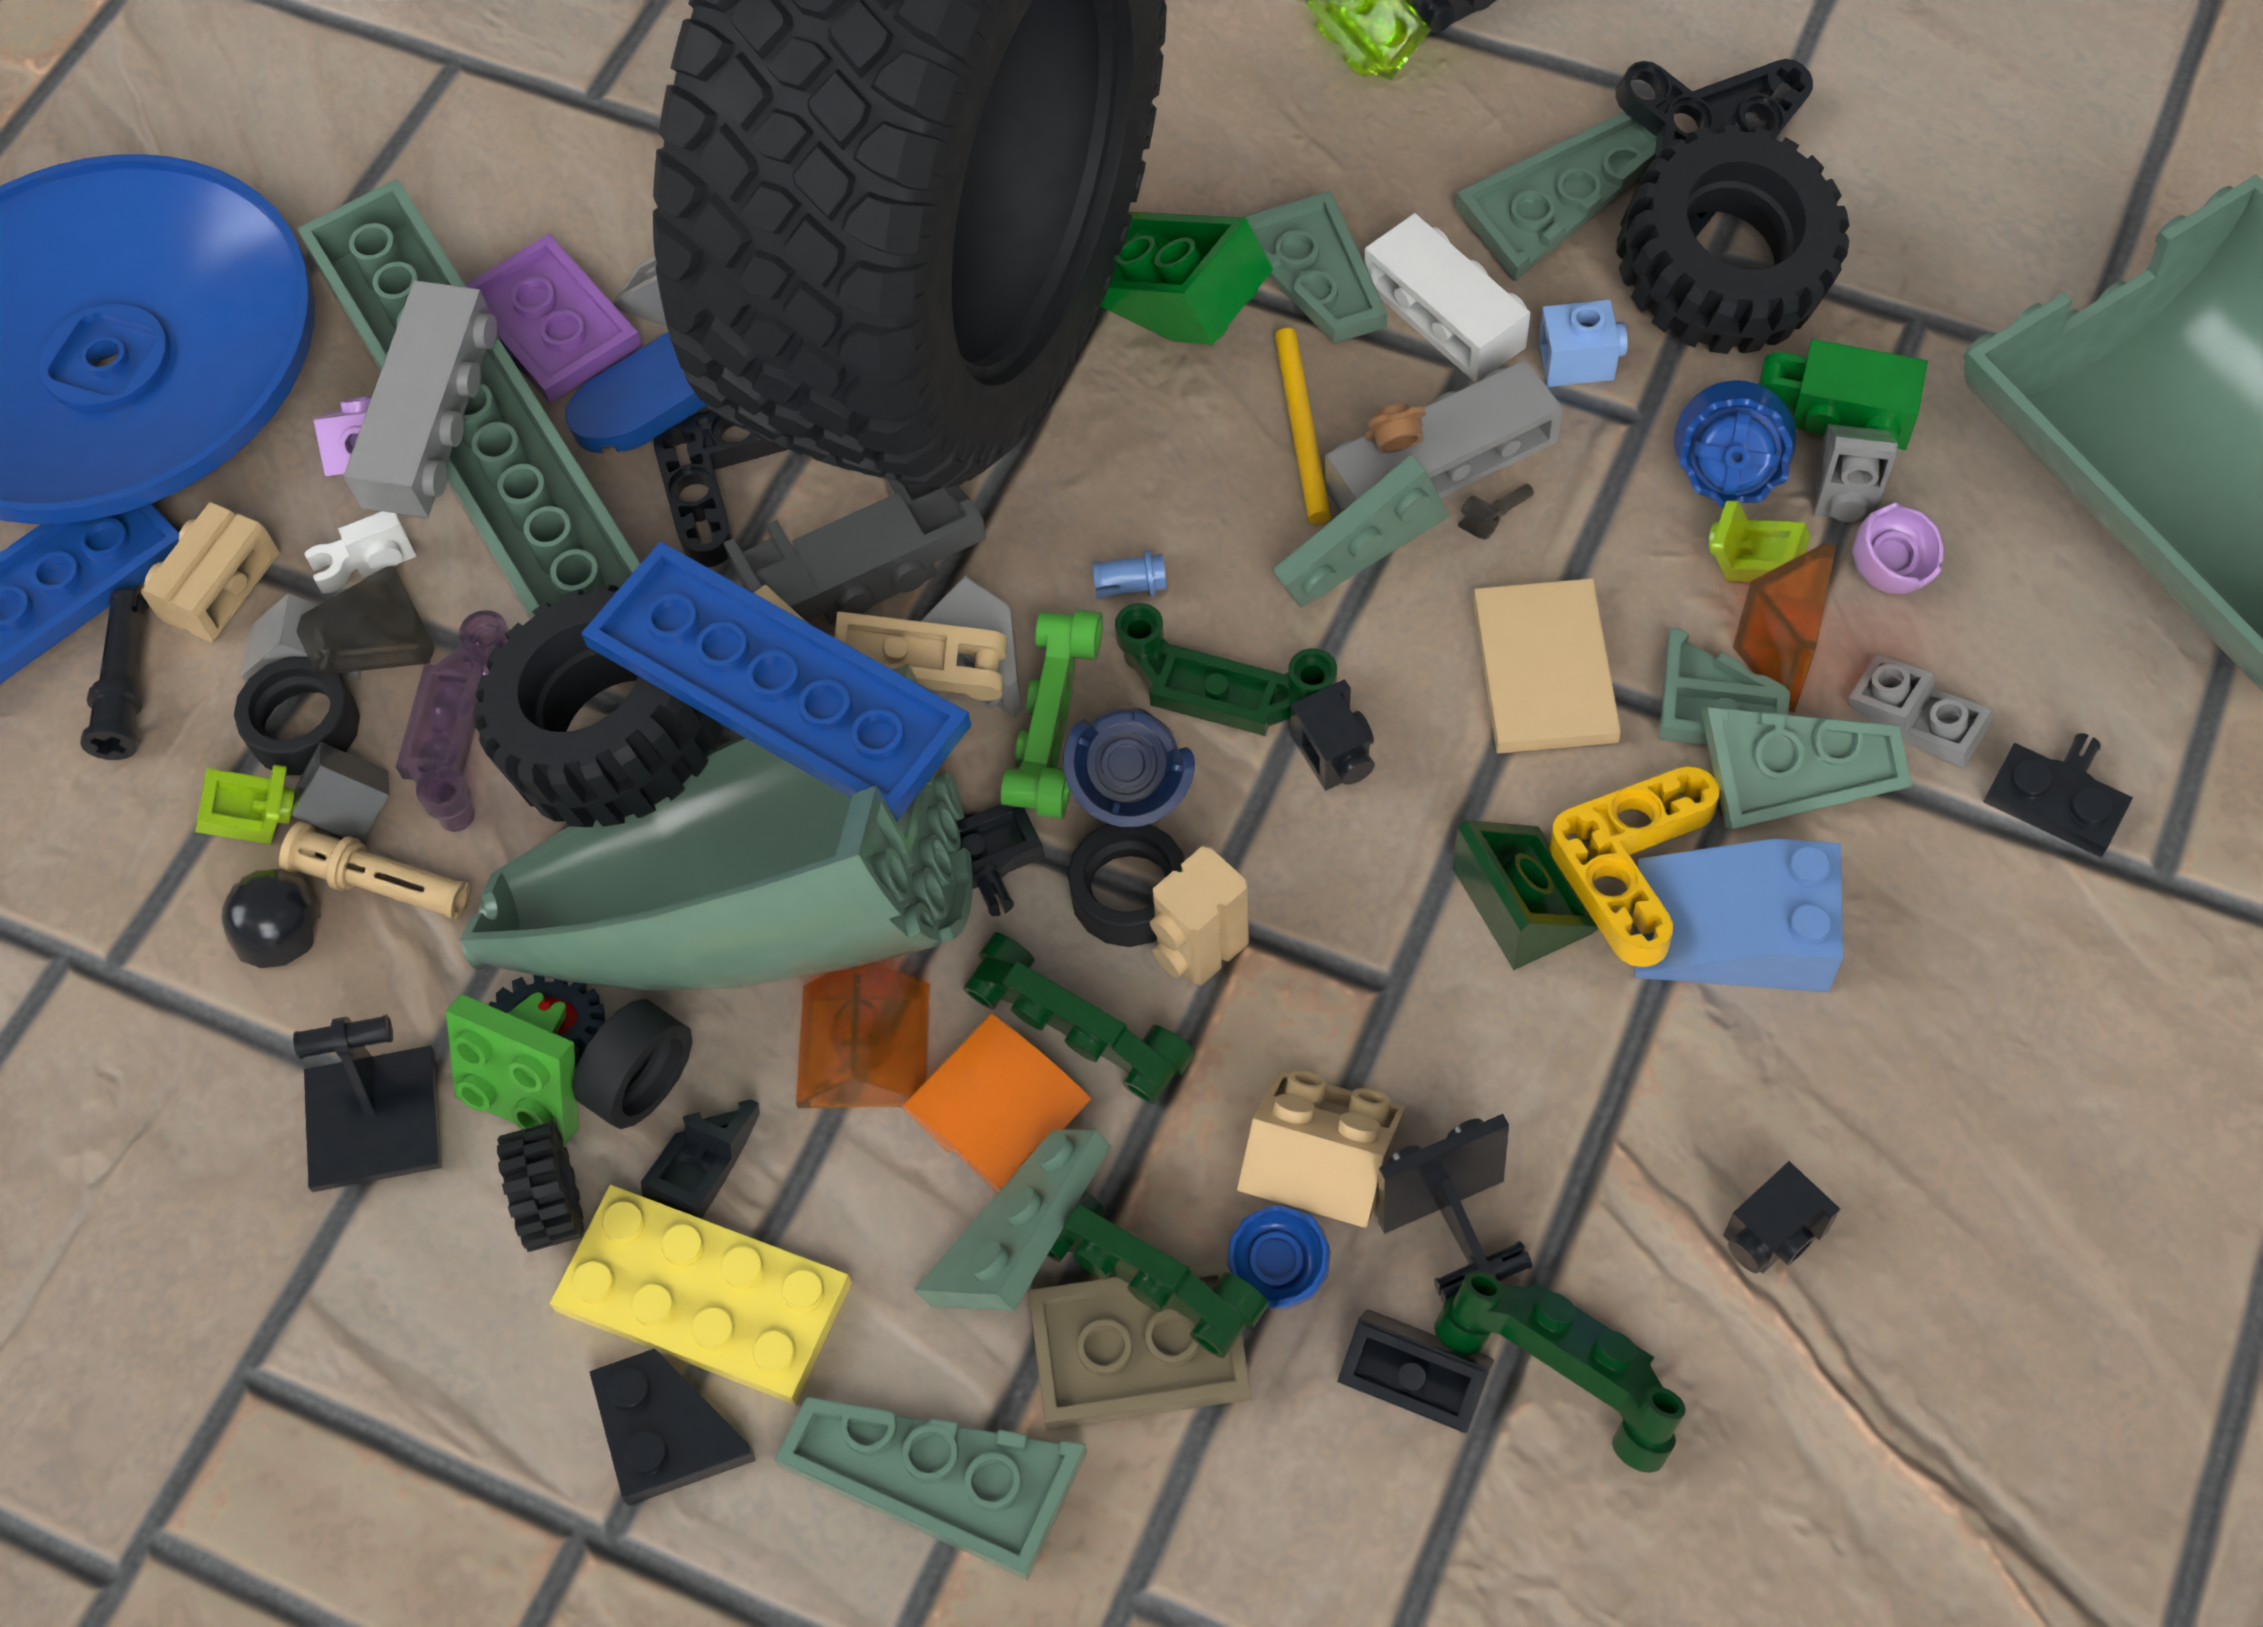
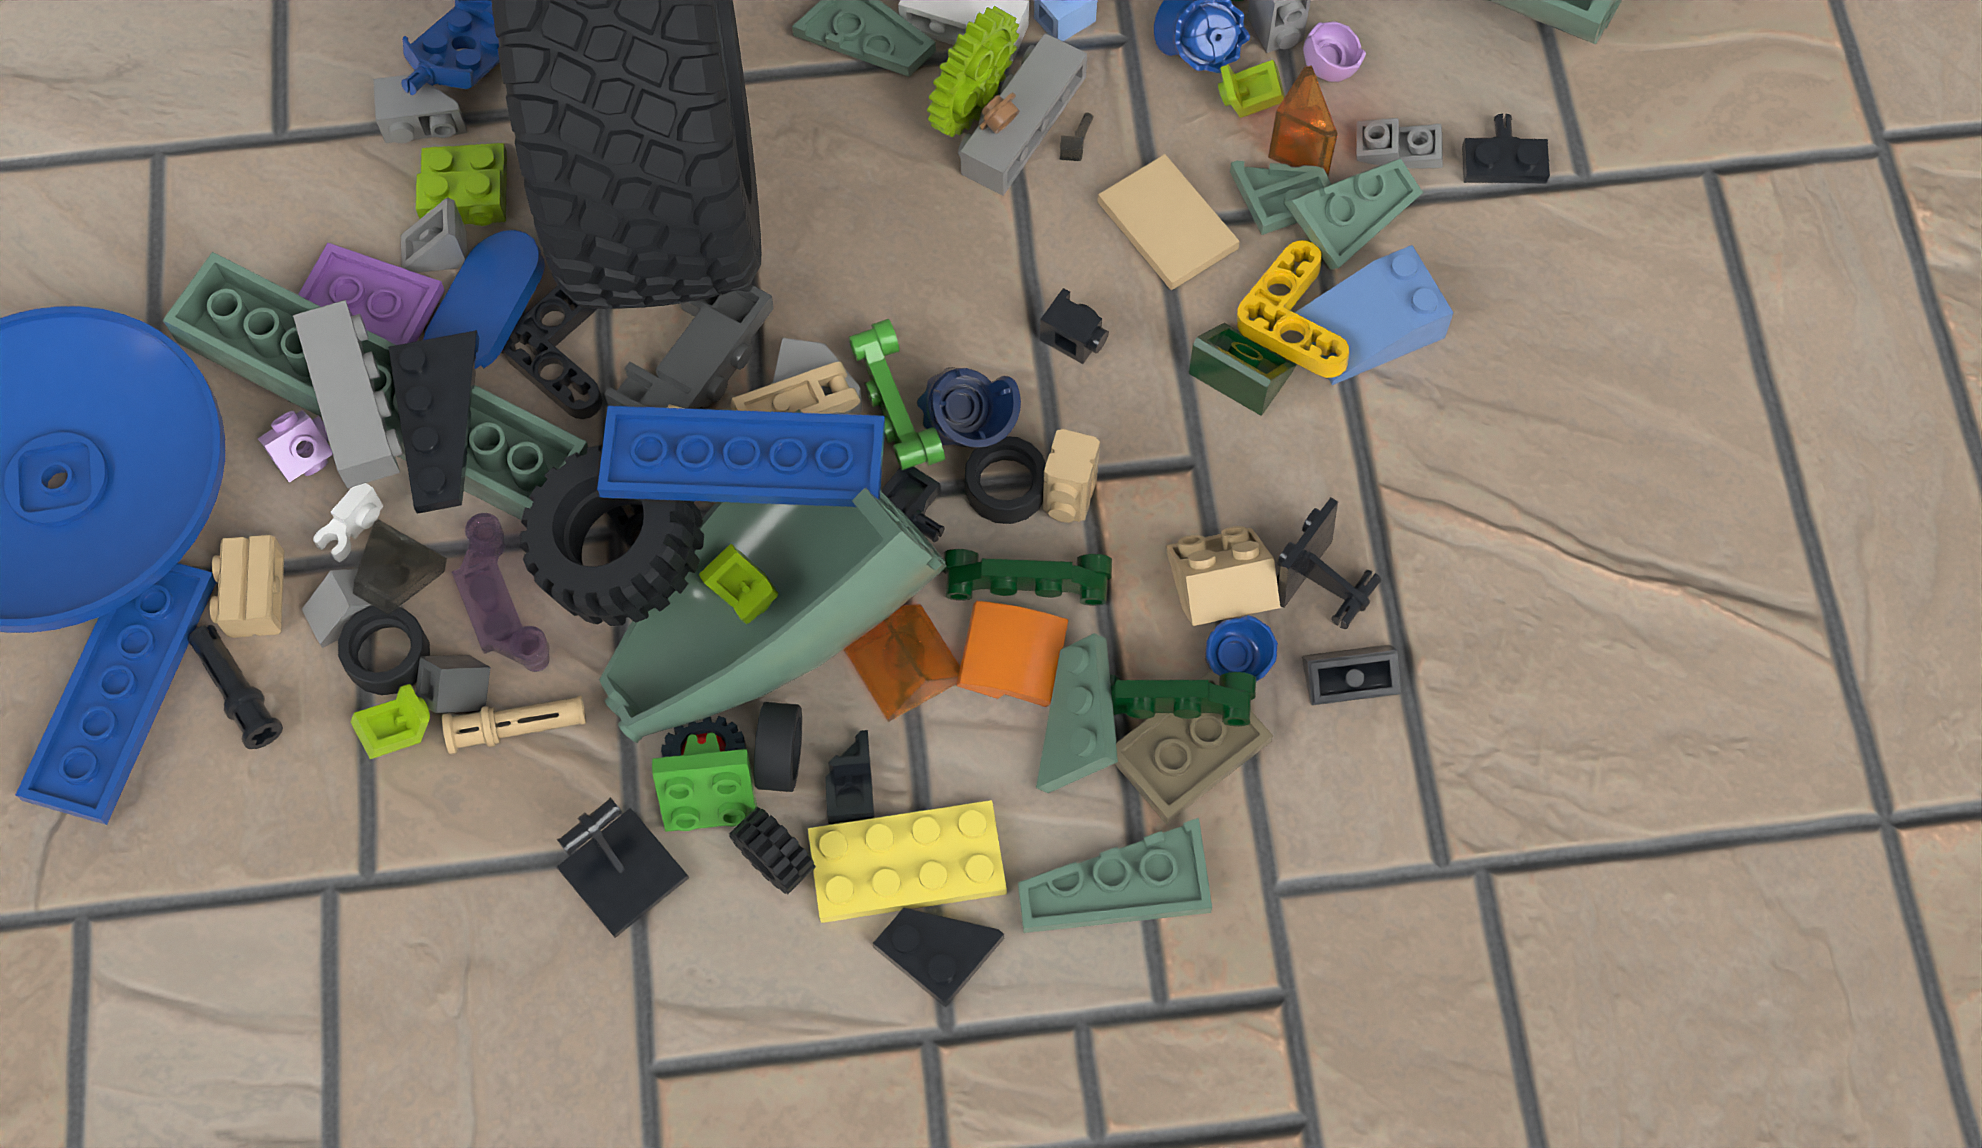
camera: 35 degrees left, 5 degrees up
(270, 918) = (460, 787): black hair -> none
(502, 470) = (434, 410): none -> black wing
(719, 840) = (739, 583): none -> lime bracket
(1130, 575) = (879, 288): medium blue pin -> none
(1186, 274) = (792, 73): green slope -> none
(1212, 685) = (977, 332): dark green plate -> none
(1302, 427) = (923, 140): yellow bar -> none
(1365, 532) = (1012, 192): sand green wing -> none
(1394, 357) = (973, 71): none -> lime gear
(1575, 1347) = (1435, 611): dark green plate -> none
(1779, 1221) = (1501, 481): black brick -> none

